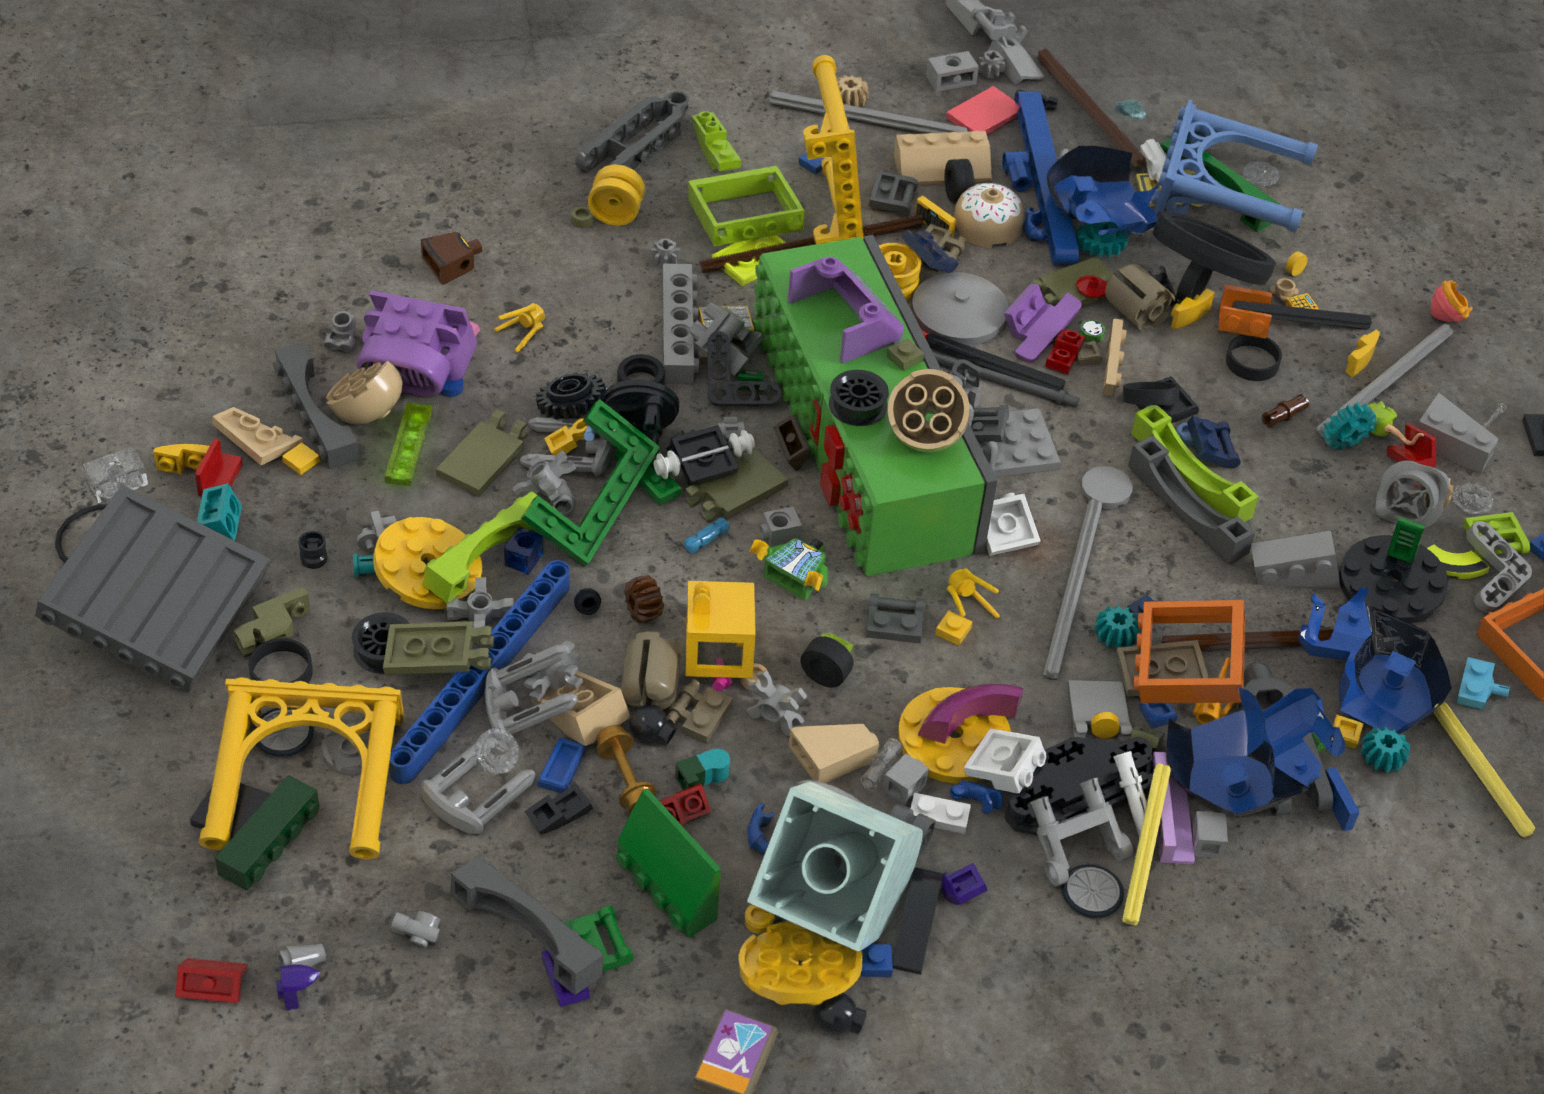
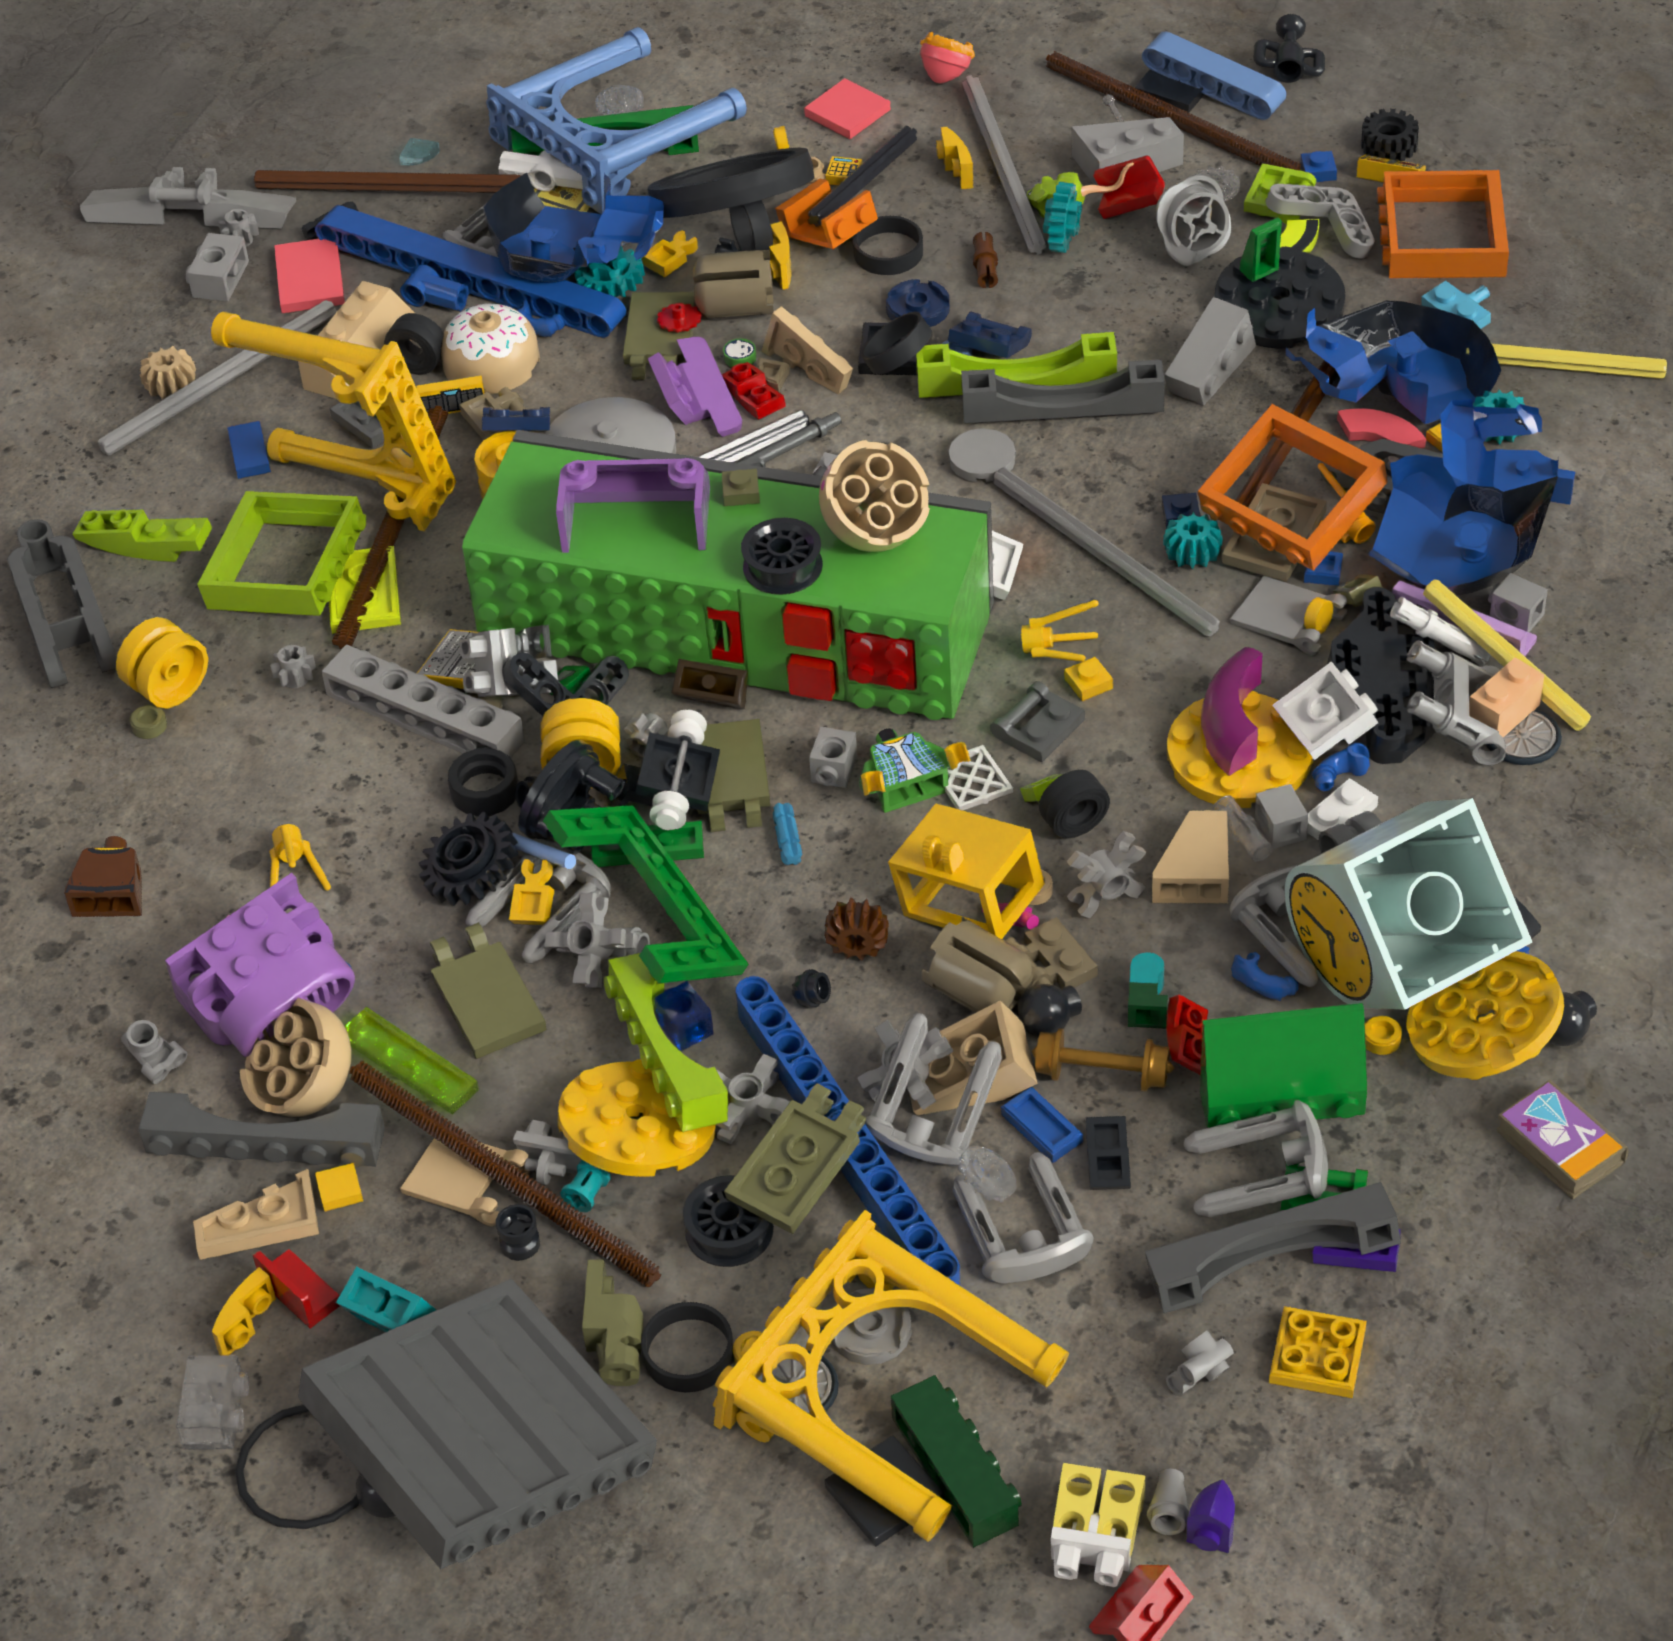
camera: 50 degrees left, 0 degrees up
(260, 924) = (1092, 1537): none -> hips
(343, 505) = (456, 1184): none -> tan flag
(349, 525) = (504, 1174): none -> reddish brown axle
(470, 991) = (1317, 1352): none -> yellow tile
(613, 909) = (1307, 1149): none -> light grey piece
(698, 400) = (584, 721): none -> yellow wheel
(812, 619) = (982, 796): none -> white window
(1103, 860) = (1507, 696): none -> light nougat brick
(1147, 257) = (669, 256): none -> yellow plate
(1215, 396) = (912, 296): none -> dark blue tile
(1315, 676) = (1376, 425): none -> coral tile
(1362, 282) = (847, 108): none -> coral tile
(1519, 447) = (1158, 109): none -> reddish brown axle

